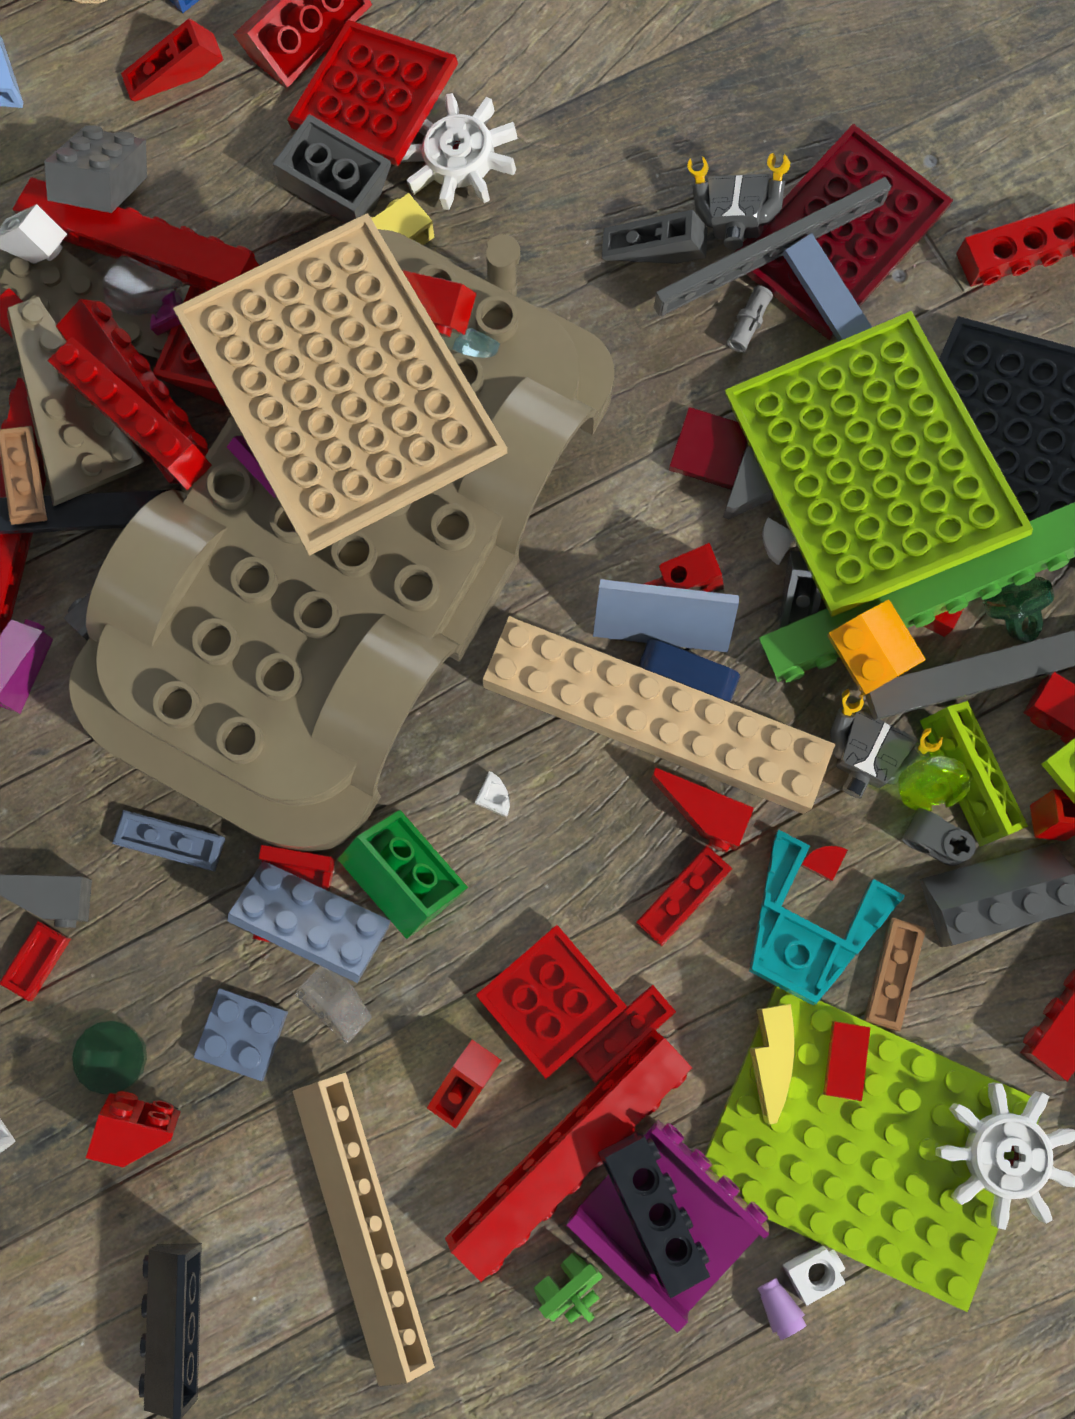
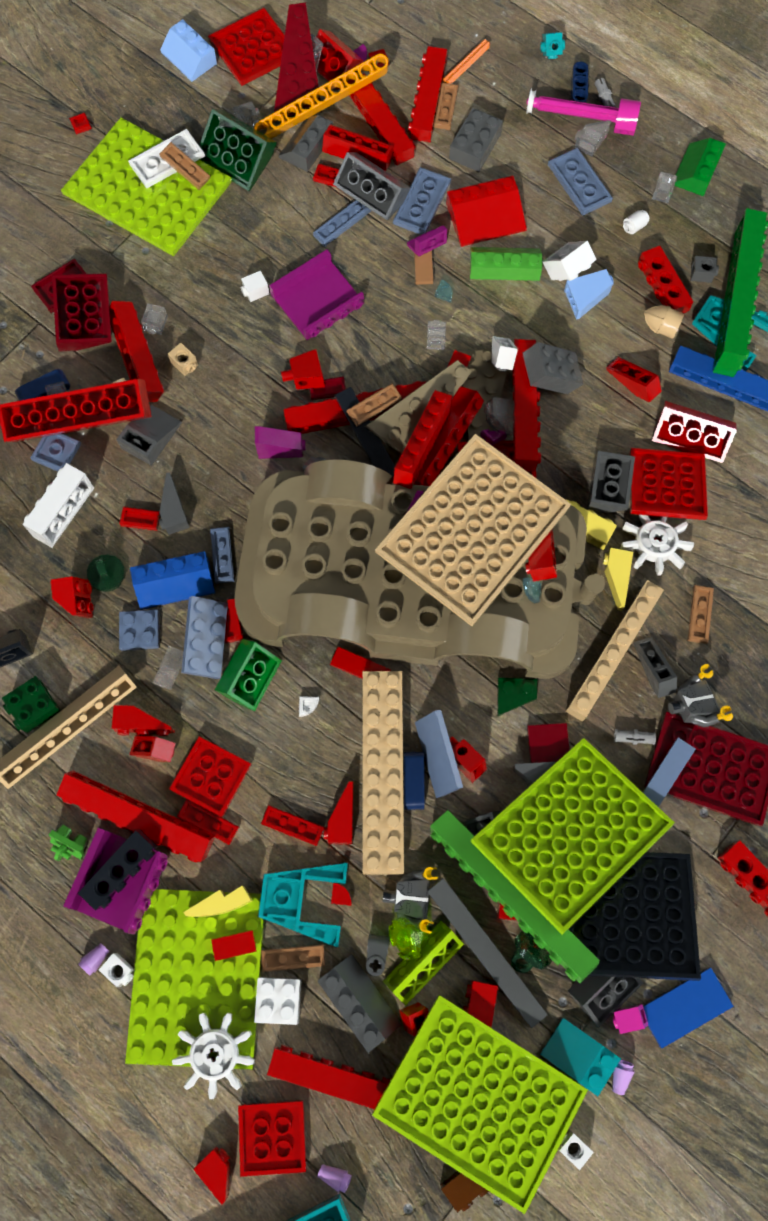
camera: 70 degrees right, 5 degrees down
(178, 942) = (172, 580): none -> blue slope
(297, 1277) = (30, 705): none -> dark green brick
(399, 1099) = (130, 719): none -> red slope
(458, 691) = (354, 663): none -> red tile
(474, 222) = (617, 571): none -> light yellow slope
(599, 143) = (700, 614): none -> medium nougat tile
(606, 286) = (614, 651): none -> tan brick
(610, 465) = (514, 693): none -> dark green wing
(770, 247) = (680, 731): dark grey tile -> none
(776, 540) = (509, 798): white tile -> none
(876, 647) = (463, 872): light orange slope -> none
(957, 1021) = (278, 1001): none -> white brick

